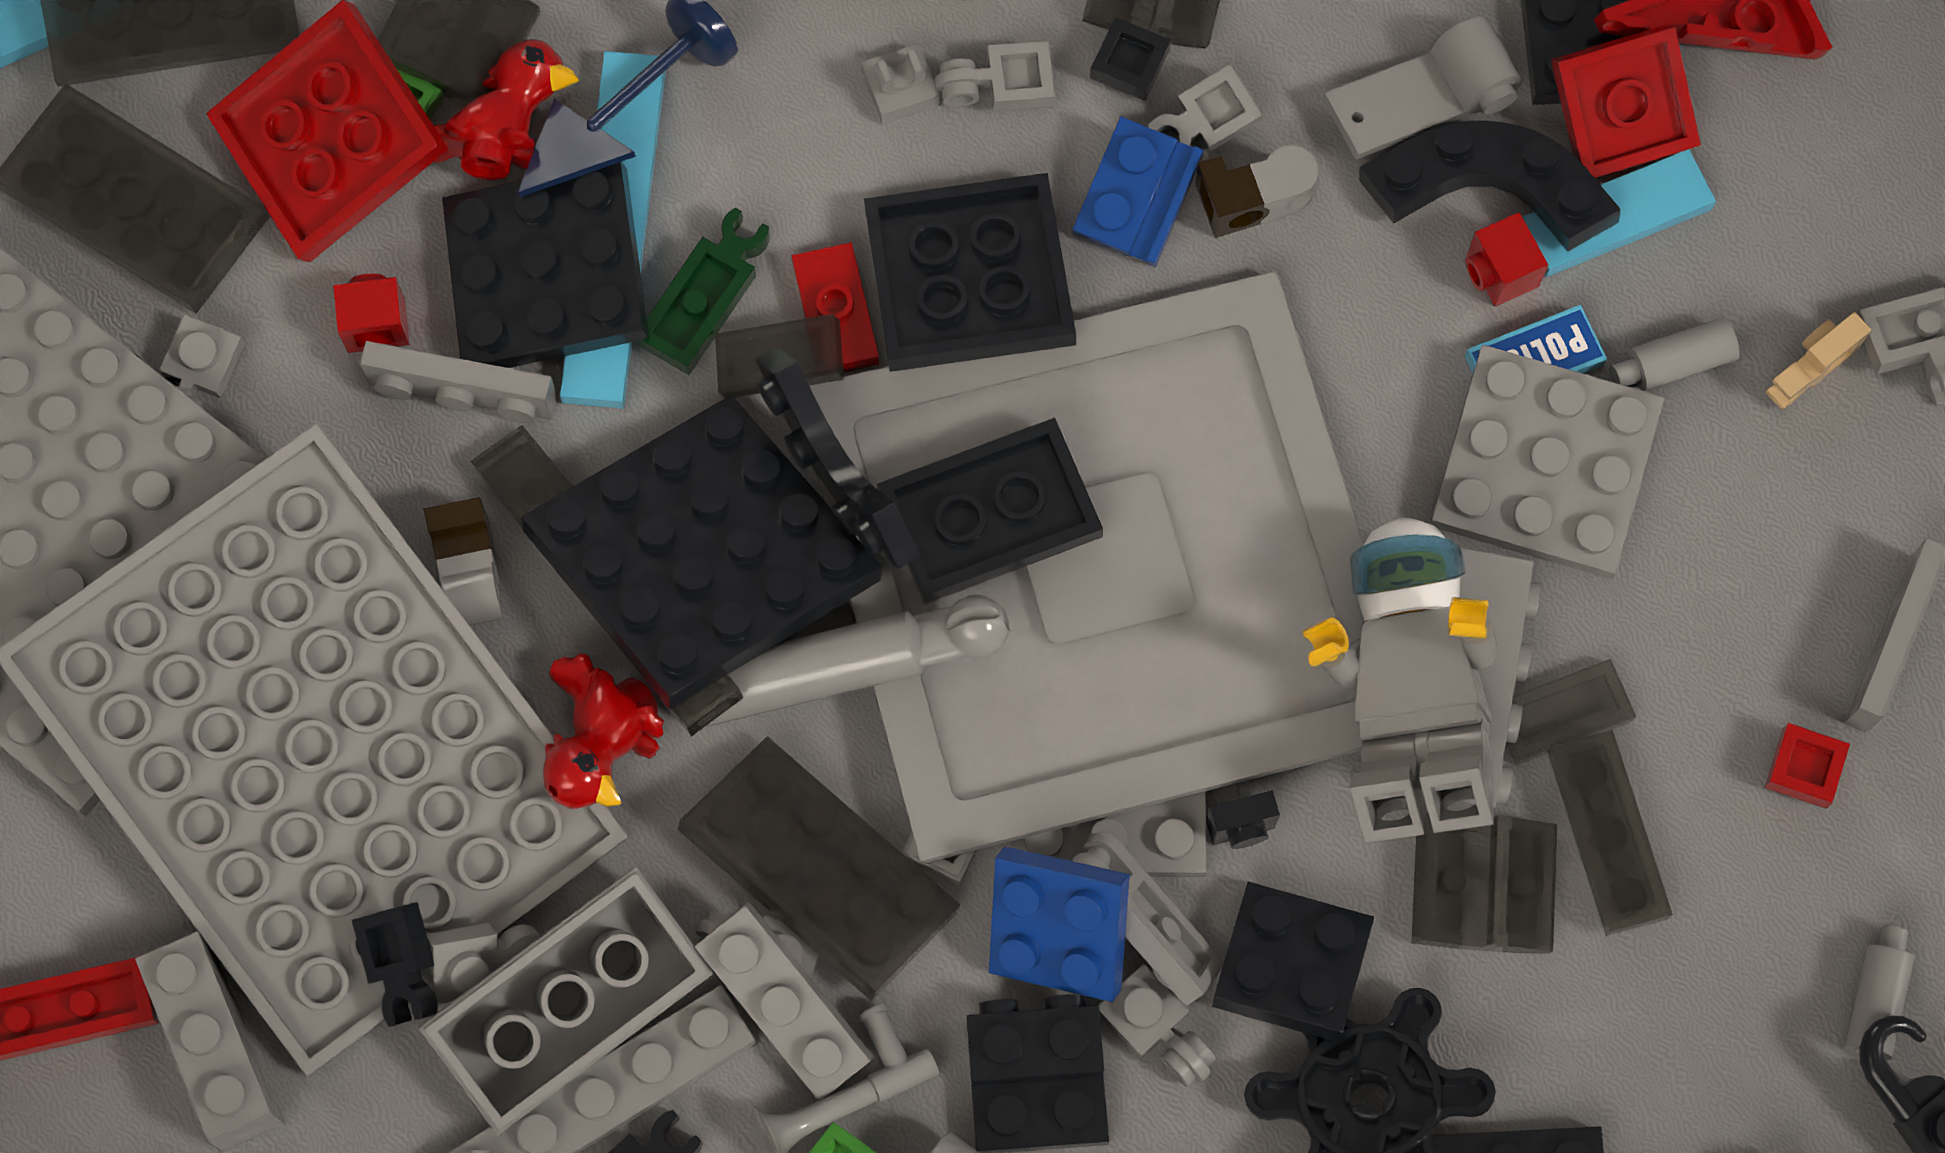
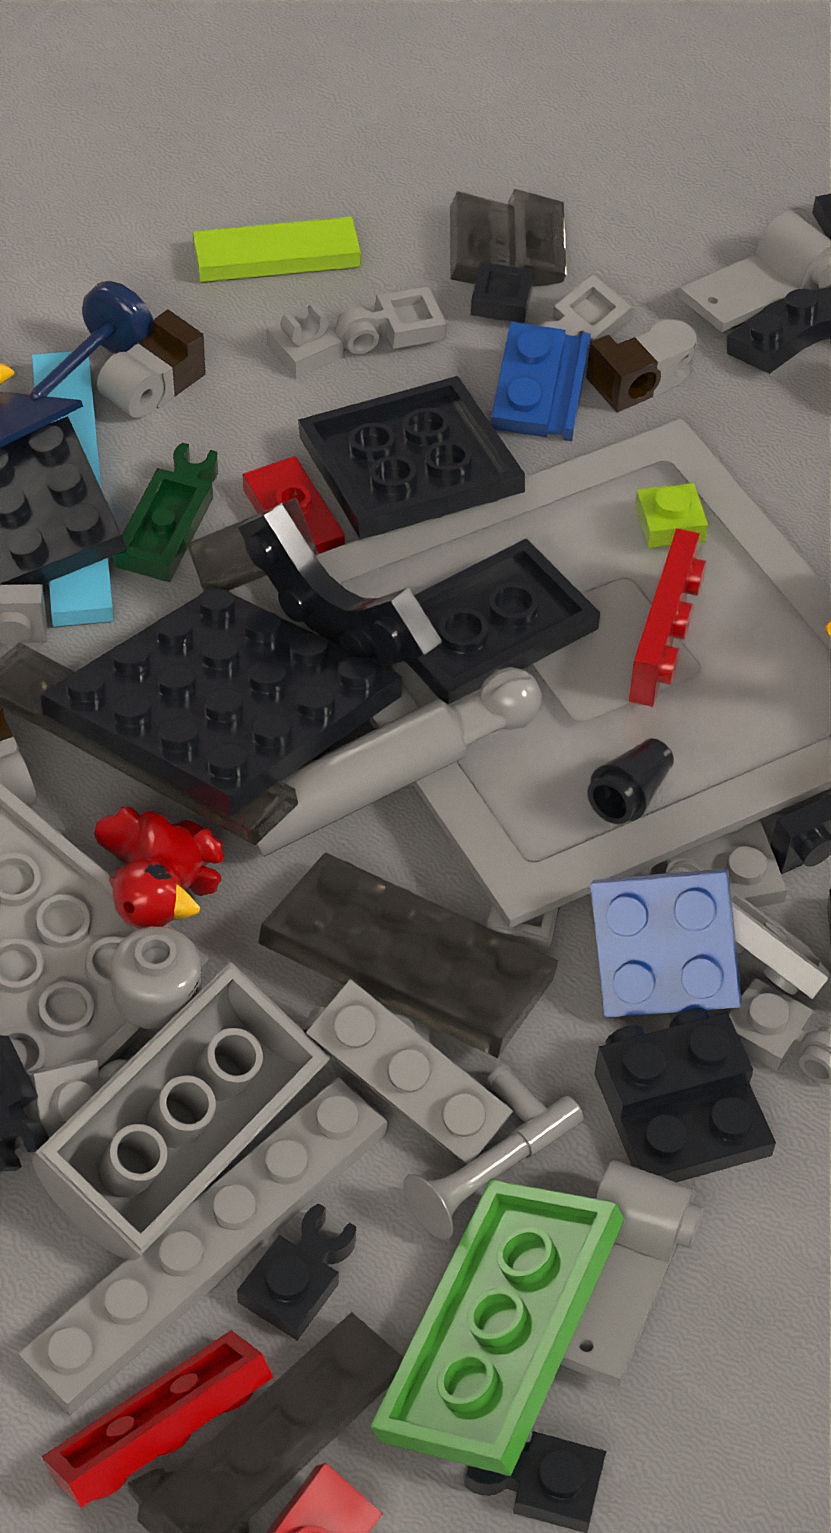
camera: 15 degrees left, 20 degrees down
(565, 865) = (154, 976): none -> light grey head
(727, 96) = (154, 367): none -> leg
(1076, 736) = (629, 781): none -> black cone
(1171, 547) = (667, 618): none -> red plate
(1220, 407) = (669, 508): none -> lime plate

